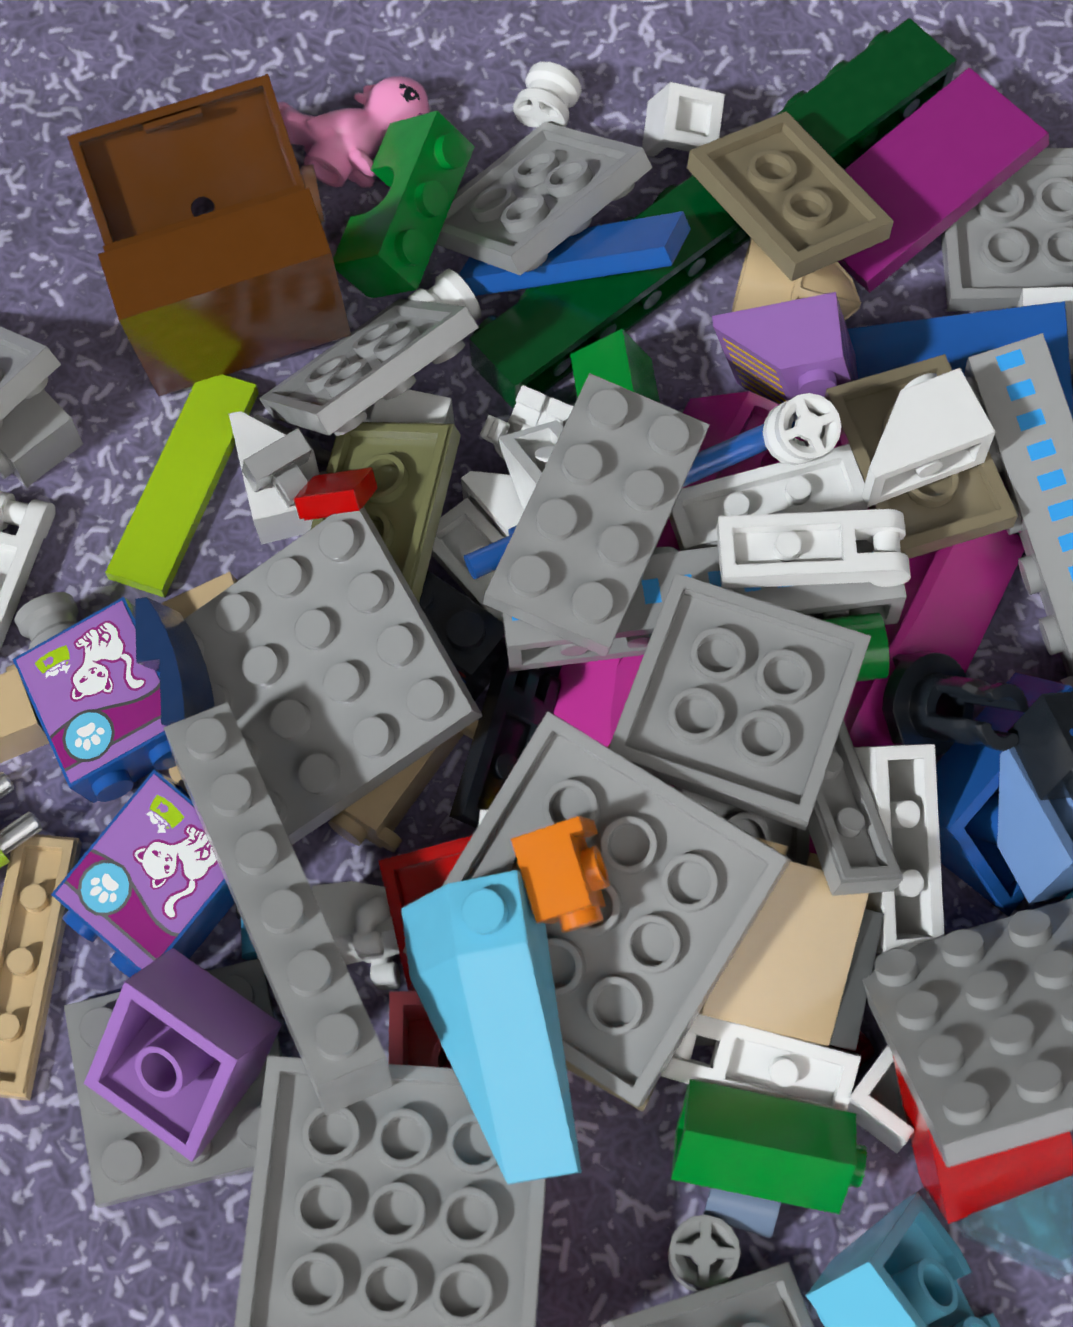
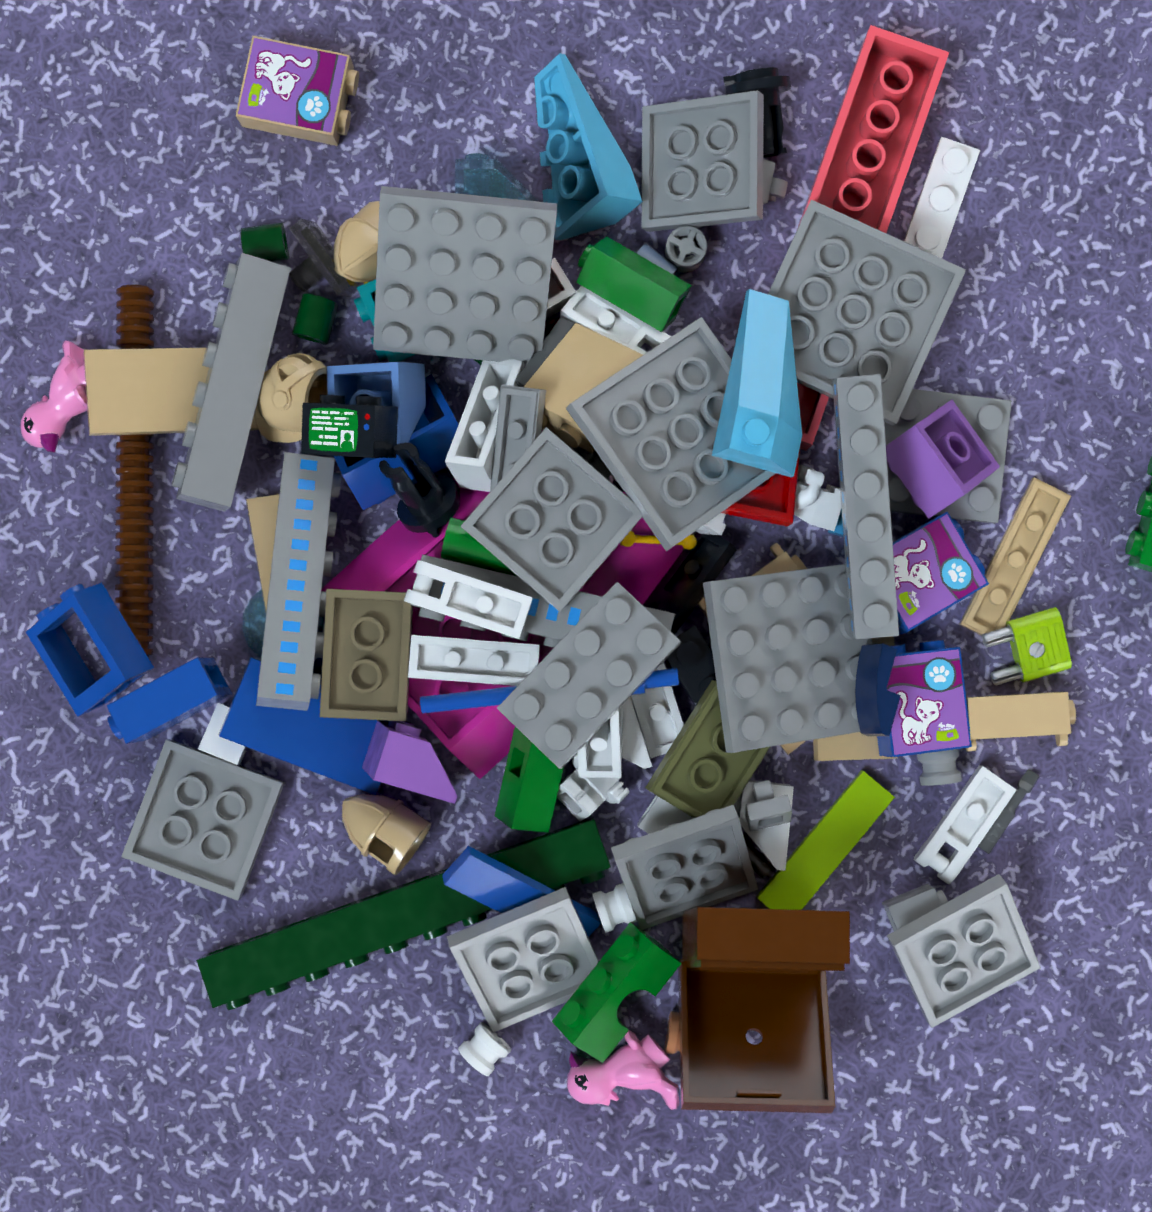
camera: 160 degrees left, 20 degrees up
(335, 493) = (740, 767): red tile -> none
(563, 873) = (700, 446): orange brick -> none
(682, 118) = (401, 988): white panel -> none
(789, 195) = (364, 882): dark tan plate -> none
(814, 422) = (429, 683): white wheel -> none
(929, 436) = (362, 655): white slope -> none
(940, 169) = (261, 879): magenta tile -> none

